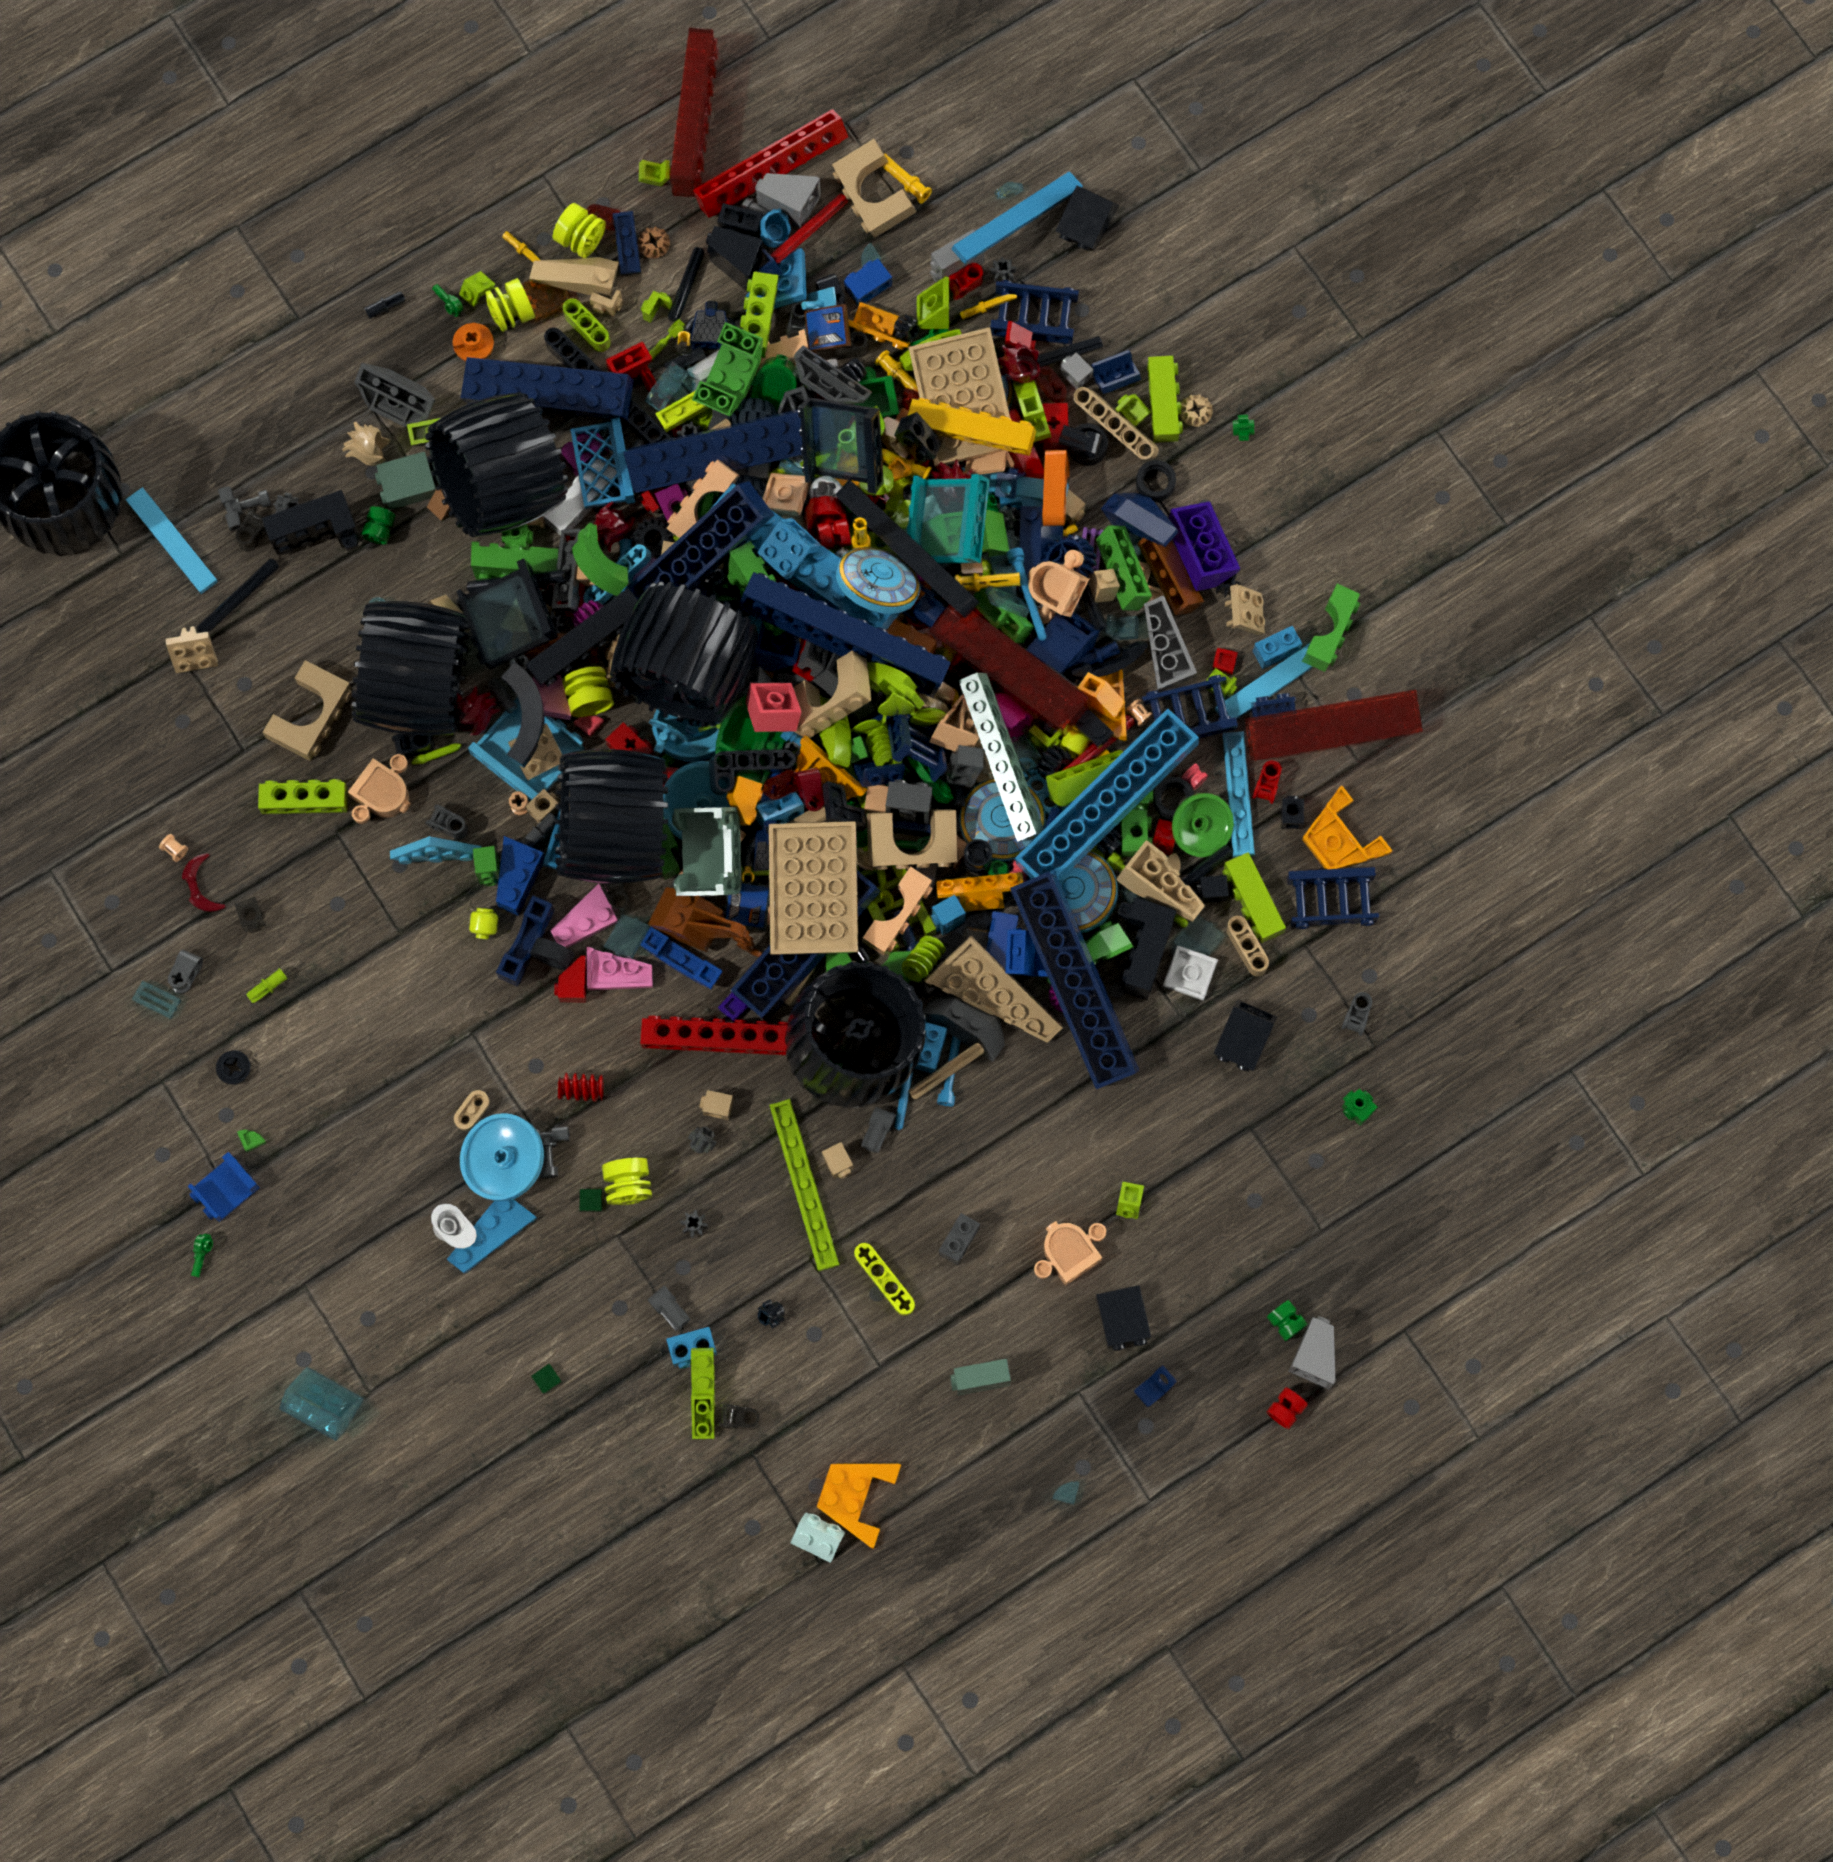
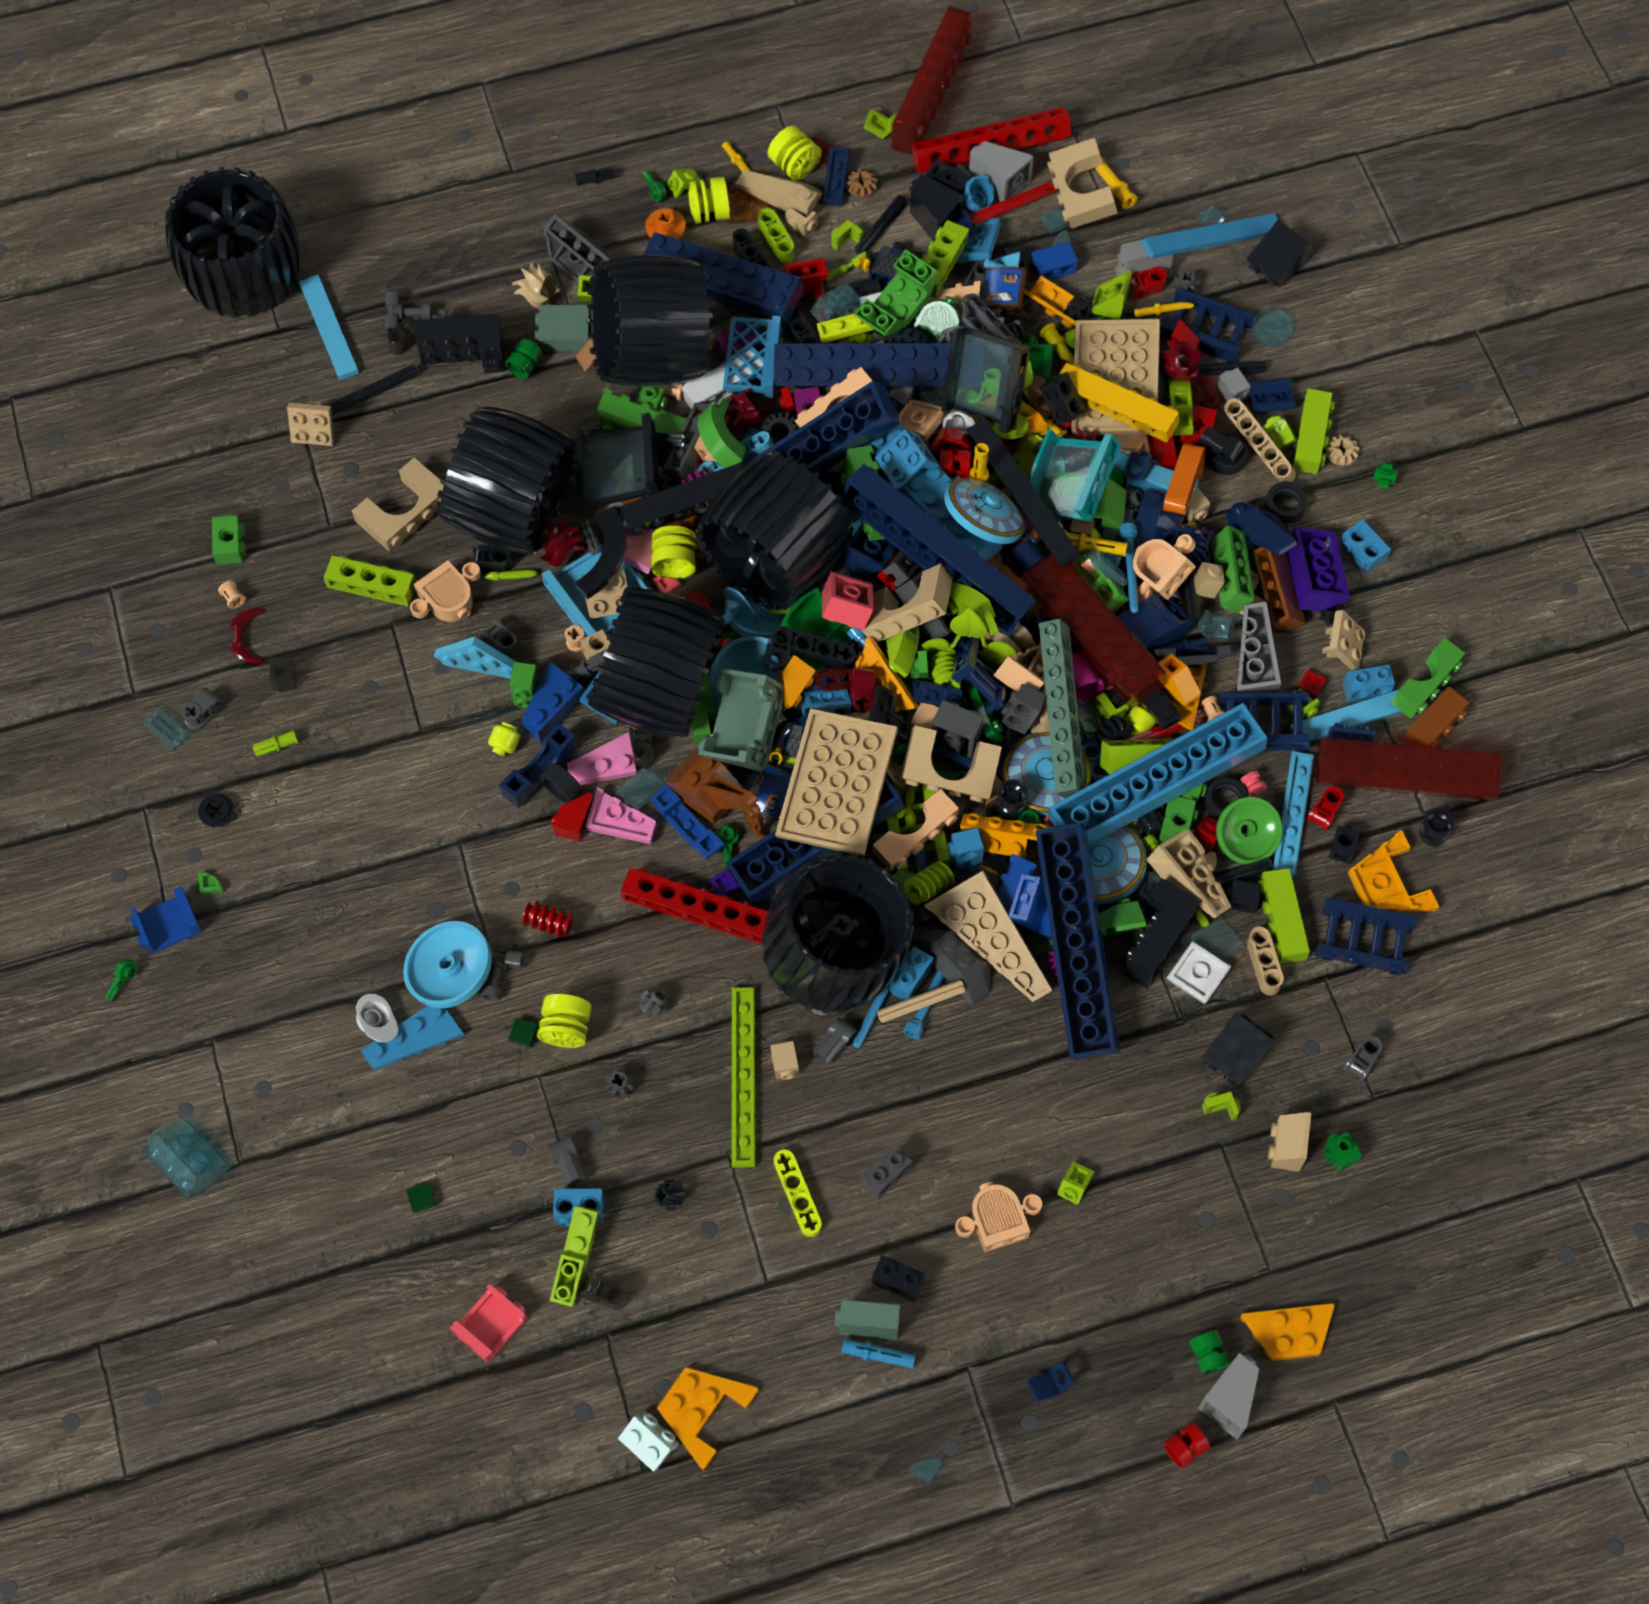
camera: 15 degrees right, 10 degrees down
(150, 805) = (227, 551): none -> bright green brick
(470, 1110) = (432, 912): tan plate -> none
(645, 1474) = (490, 1323): none -> coral panel
(717, 1105) = (679, 973): tan brick -> none
(723, 960) = (729, 836): none -> green plate
(855, 234) = (1053, 220): none -> clear light blue tile
(997, 1332) = (898, 1278): none -> black brick
(997, 1403) = (878, 1353): none -> dark azure pin
(1098, 296) = (1272, 327): none -> clear light blue tile
(1123, 1318) = (1036, 1301): black panel -> none
(1236, 1091) = (1217, 1102): none -> lime bracket
(1245, 503) = (1369, 544): none -> dark azure brick
(1310, 1110) = (1290, 1141): none -> tan slope
(1349, 668) = (1437, 720): none -> dark orange brick
(1352, 1280) = (1290, 1331): none -> light orange wing
(1372, 773) = (1436, 827): none -> black wheel

